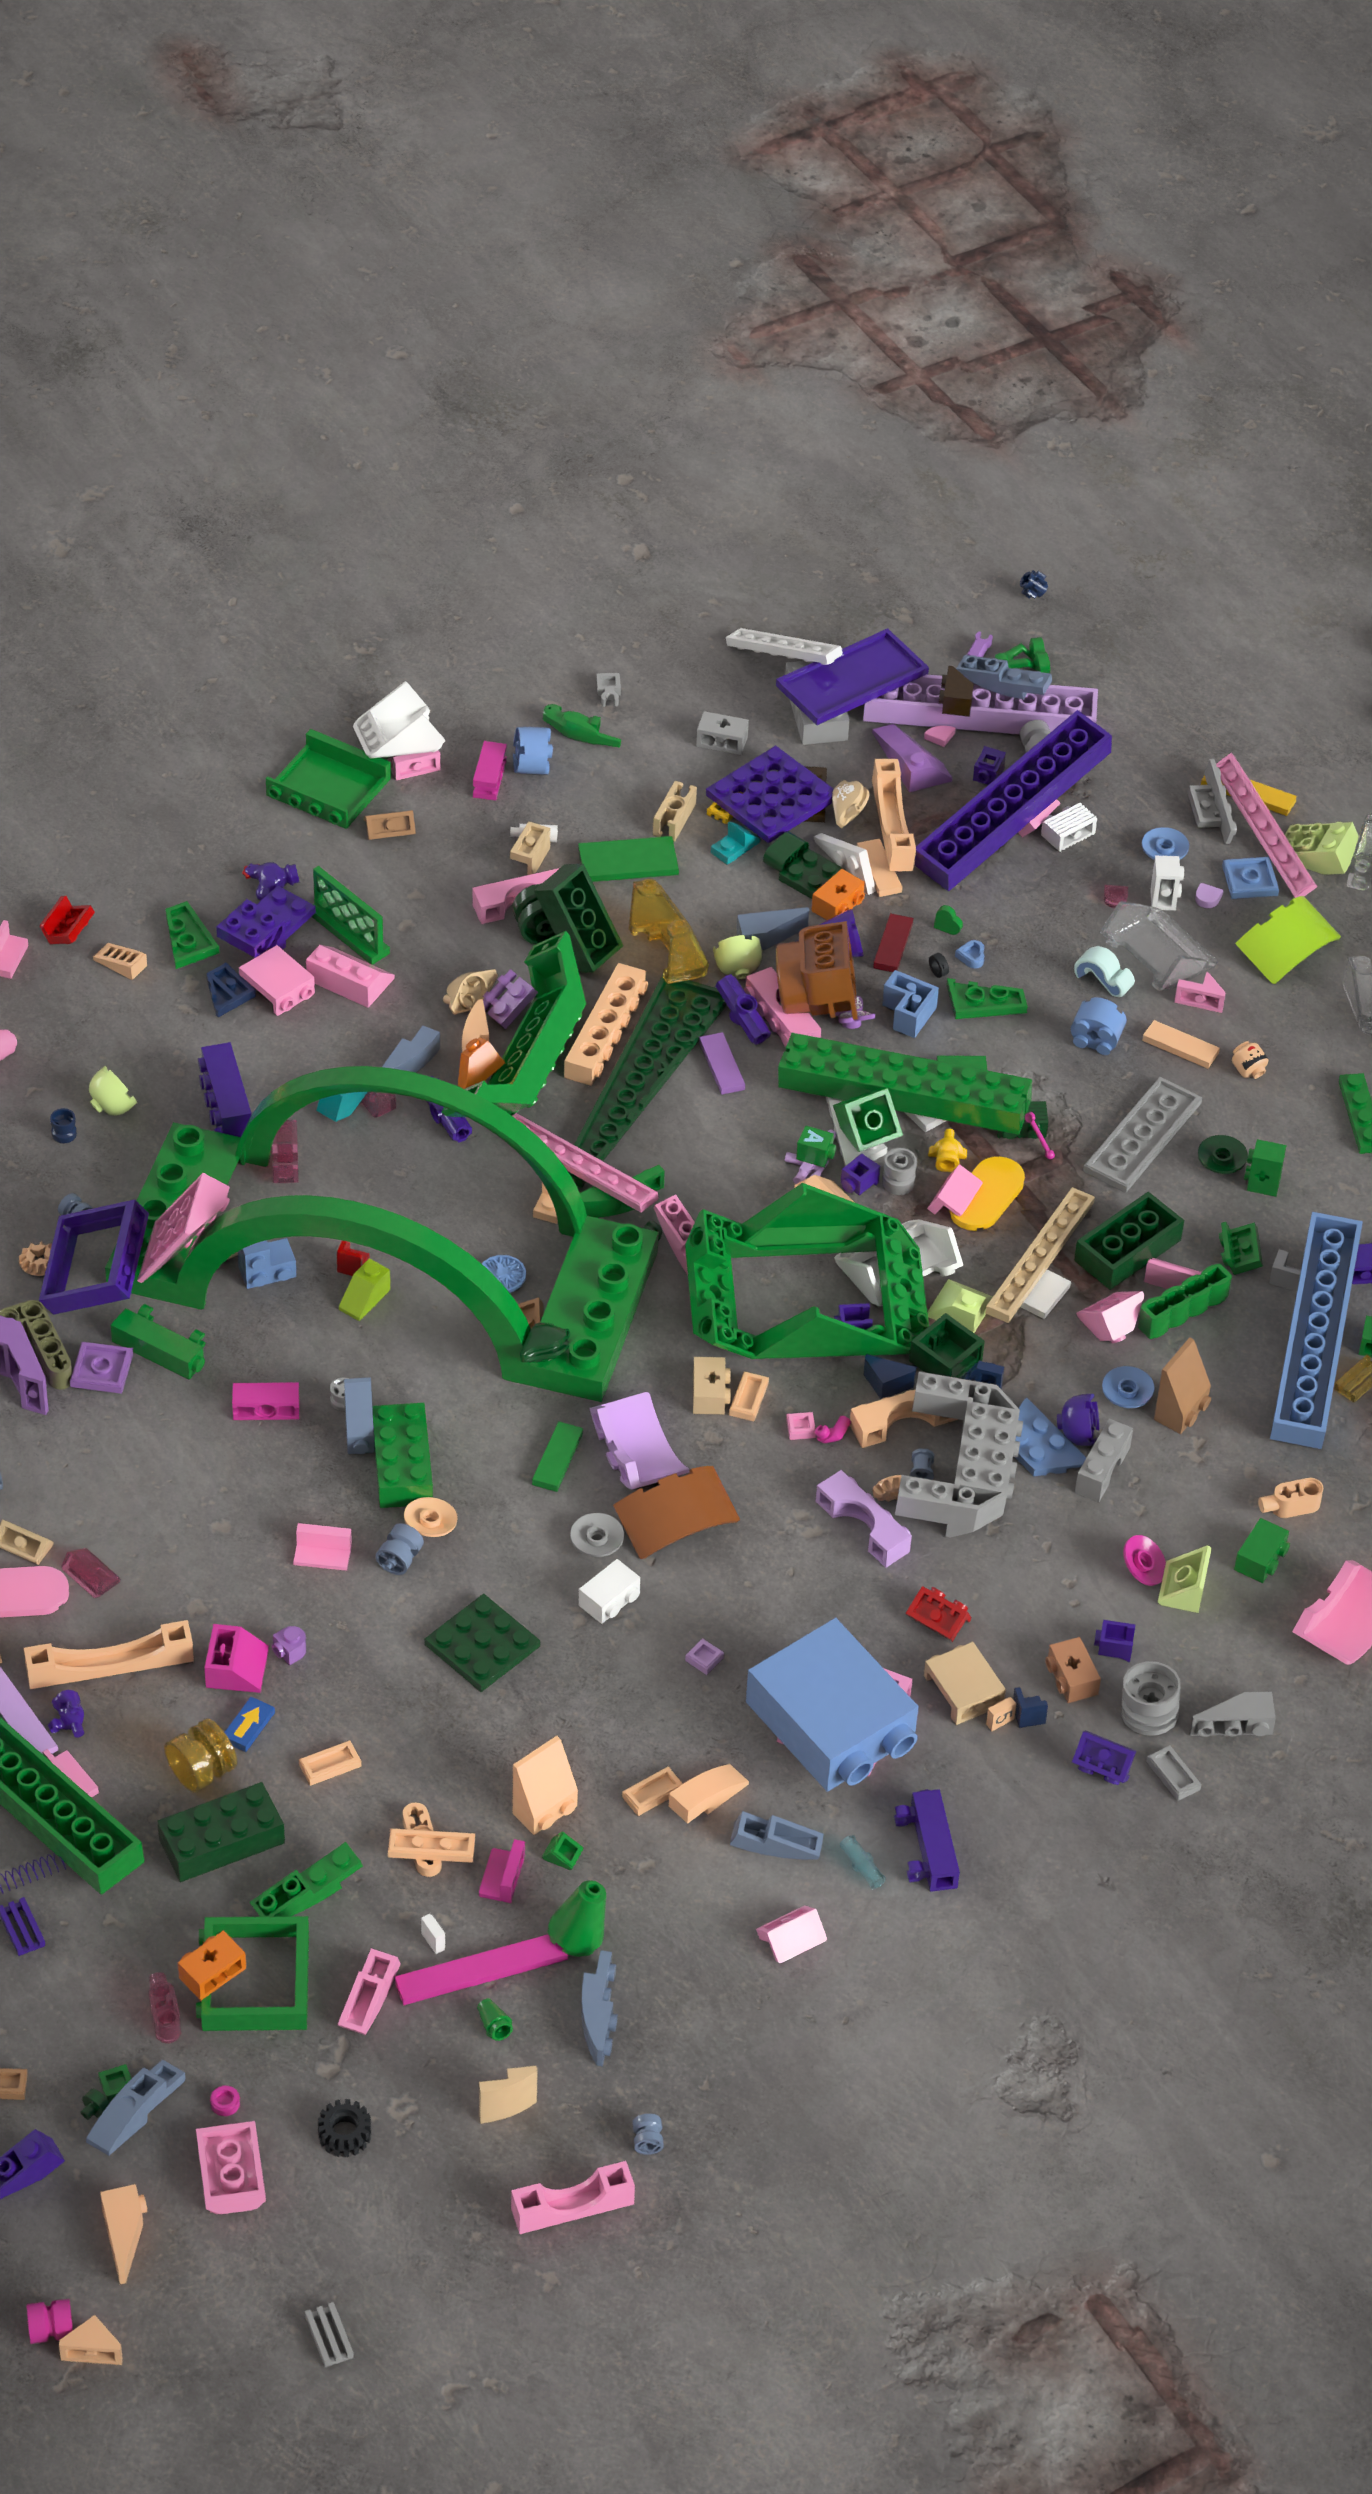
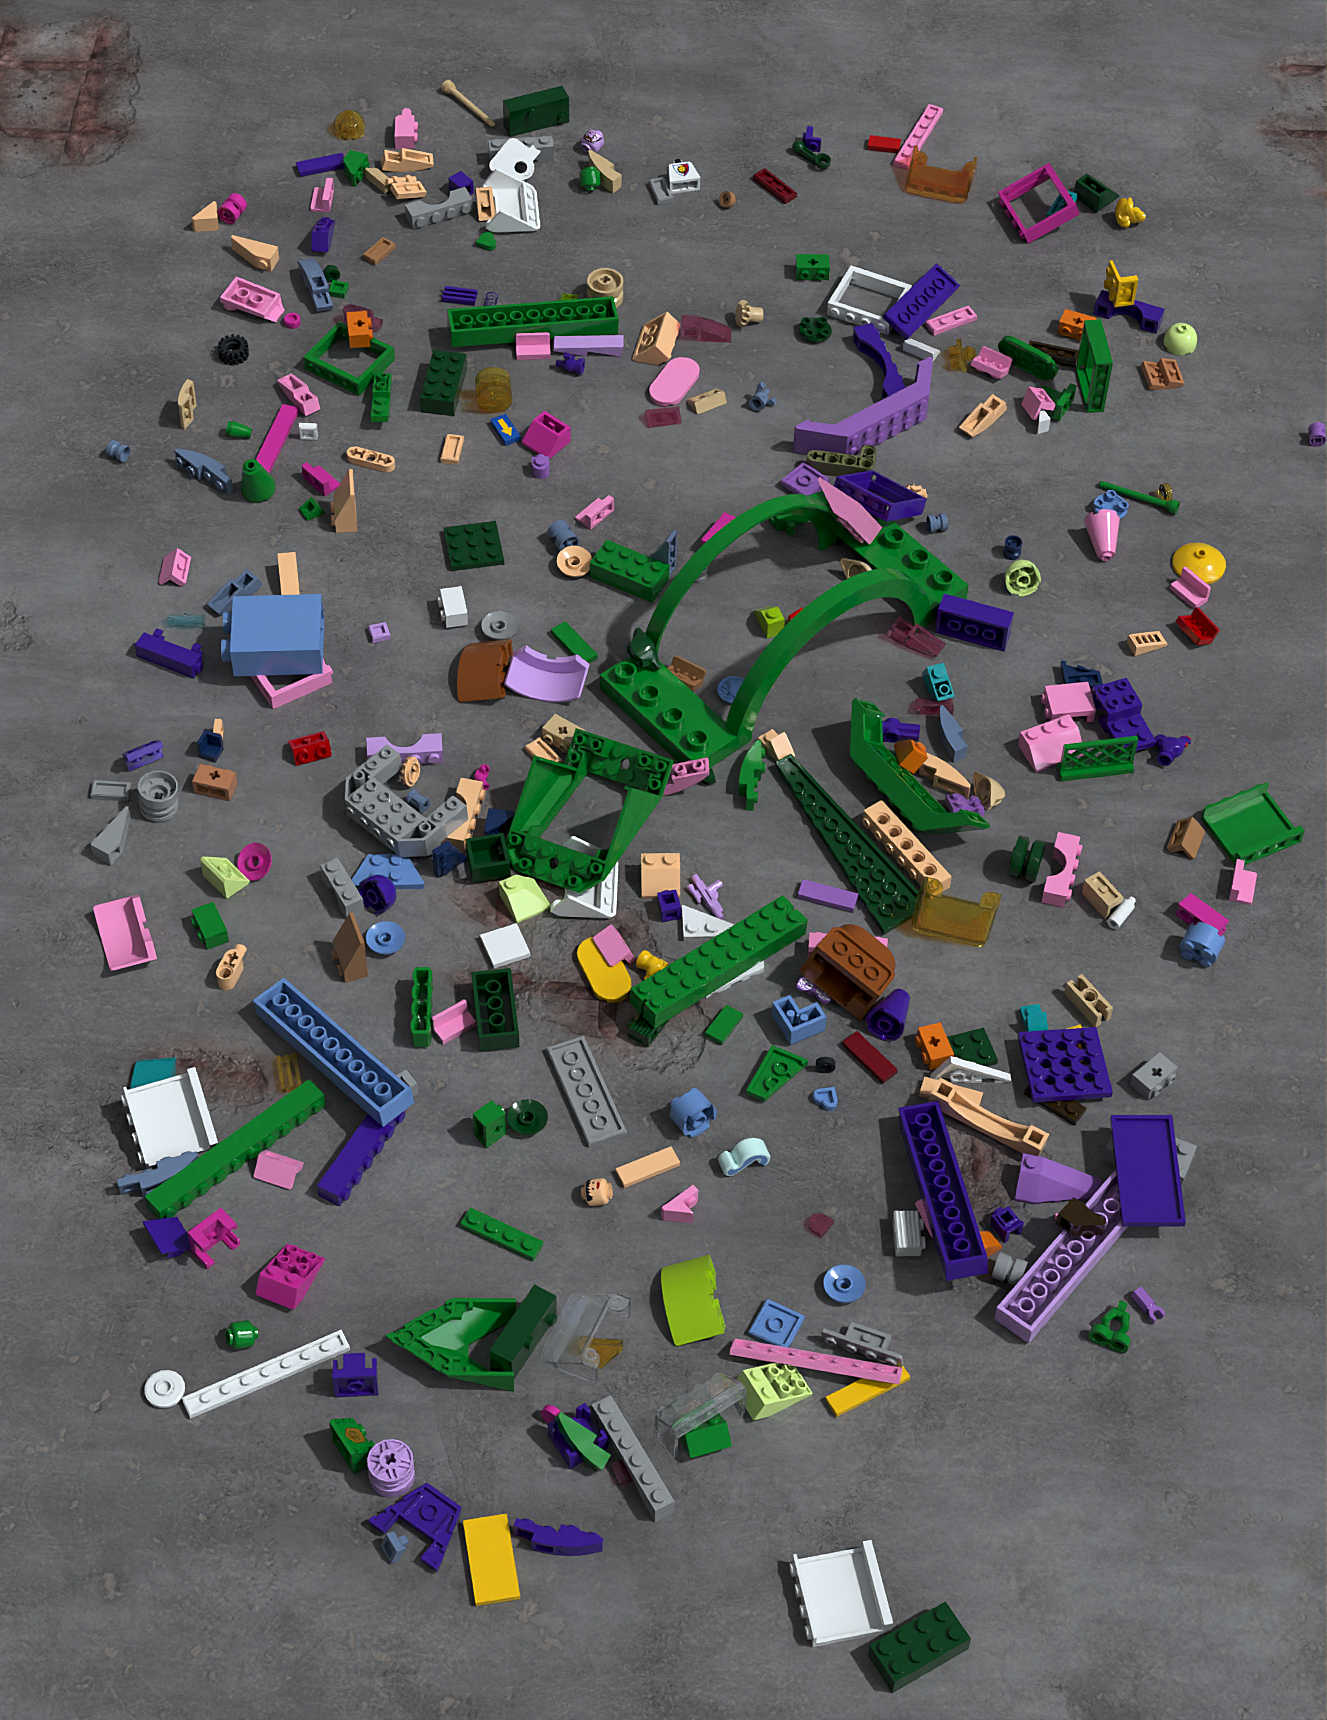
camera: 125 degrees right, 5 degrees up
(56, 1666) = (581, 411): light nougat arch -> none
(188, 936) = (1147, 683): green wing -> none
(266, 1263) = (828, 574): medium blue brick -> none
(322, 2313) = (135, 297): light grey tile -> none
(398, 726) = (1272, 877): white windscreen -> none
(431, 1845) = (359, 453): light nougat tile -> none
(541, 2207) = (118, 390): bright pink arch -> none
(576, 907) = (995, 856): dark green brick -> none
(578, 726) = (1219, 993): green animal -> none
(594, 1170) = (784, 761): bright pink tile -> none
(608, 687) = (1251, 1037): light grey plate -> none
(629, 858) = (1061, 952): green tile -> none
(651, 1791) = (314, 564): light nougat tile -> none
(738, 956) = (912, 949): yellowish green cylinder -> none
(743, 1009) = (871, 921): dark purple piece -> none
(773, 925) = (932, 983): sand blue slope -> none
(784, 646) = (1213, 1150): white plate -> none
(784, 851) = (1002, 1042): dark green beam -> none
(801, 1426) = (500, 766): bright pink tile -> none
(815, 1146) = (707, 889): green brick -> none
(848, 801) = (1027, 1105): tan hat -> none
(855, 1315) = (554, 825): dark purple window -> none
(868, 1119) = (705, 921): green slope -> none
(899, 1171) = (653, 924): light grey wheel -> none
(947, 920) = (864, 1097): green tile -> none
(965, 1681) = (253, 726): tan panel -> none
(997, 677) = (1078, 1263): sand blue slope -> none
(1030, 1117) = (609, 1025): dark pink hinge -> none
(1033, 584) = (1197, 1387): dark blue gear -> none
(1039, 1255) = (524, 955): tan plate -> none
(1113, 1315) = (448, 964): bright pink slope -> none
(1115, 1639) = (215, 813): dark purple window -> none
(1157, 943) = (746, 1219): clear windscreen -> none
(1166, 882) = (798, 1246): white brick -> none
(1208, 896) = (777, 1283): lavender tile -> none
(1241, 1247) = (443, 1072): green bracket -> none

